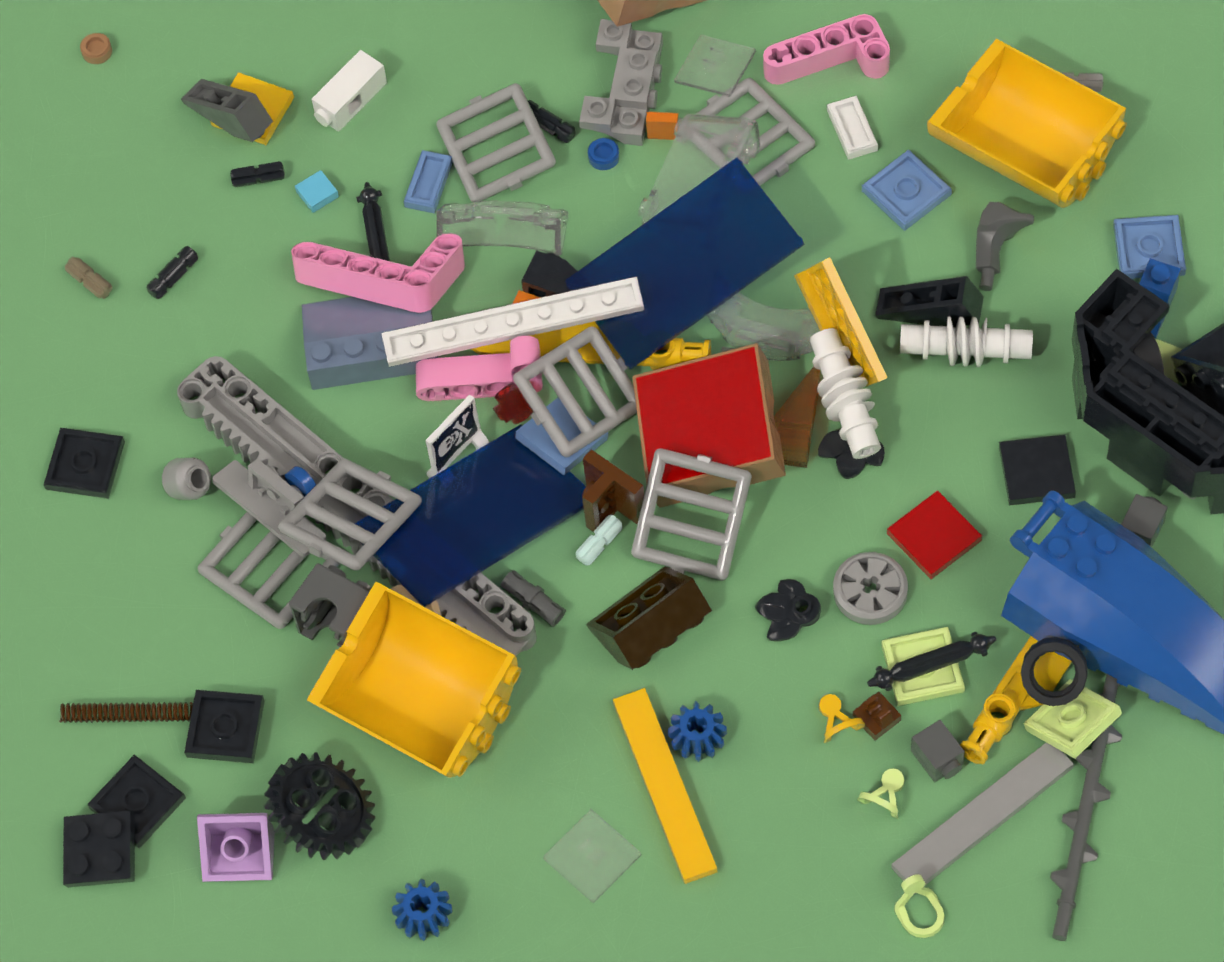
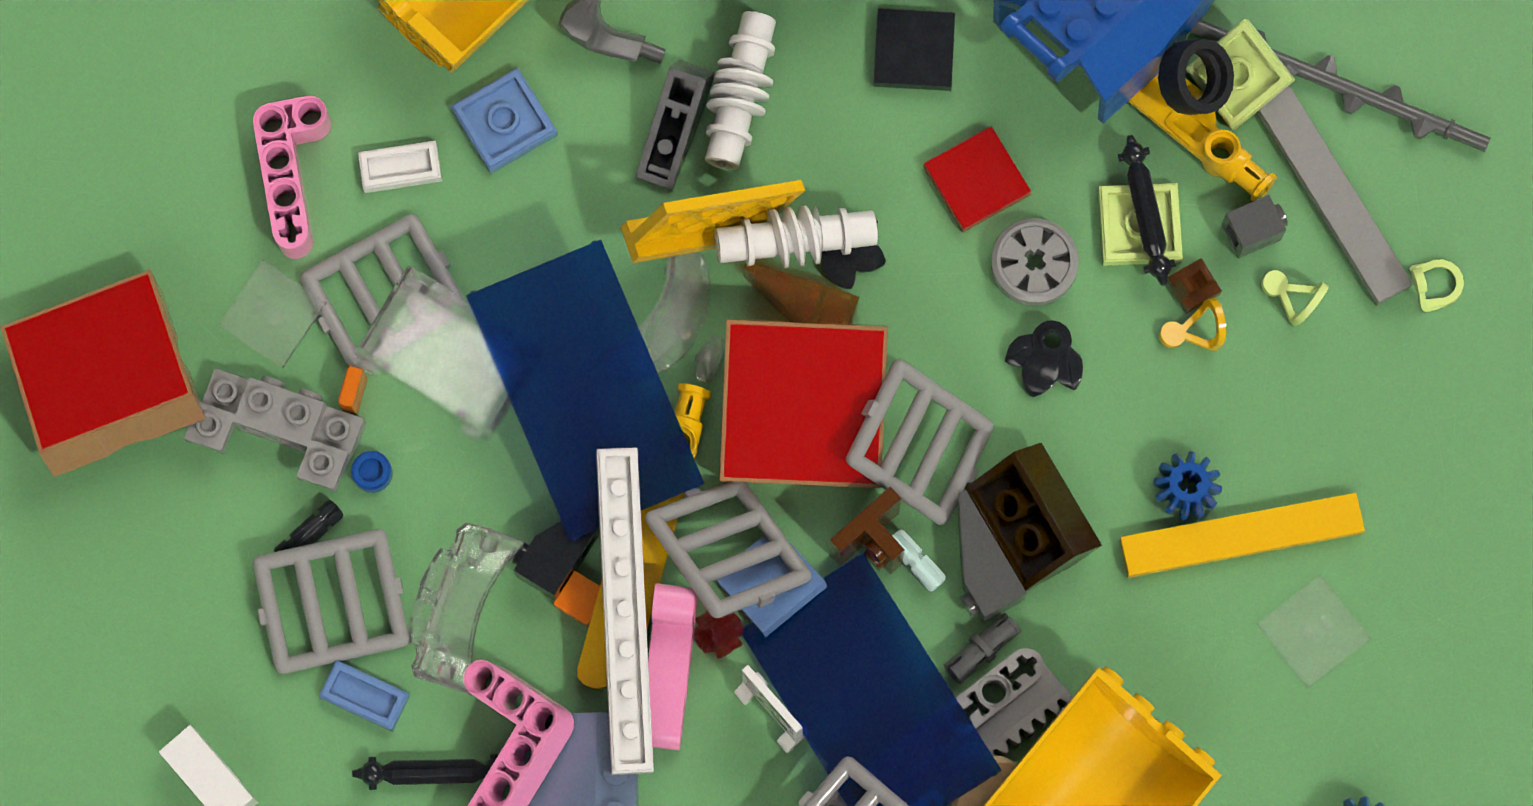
camera: 85 degrees left, 15 degrees up
(600, 585) = (986, 573): none -> dark grey slope

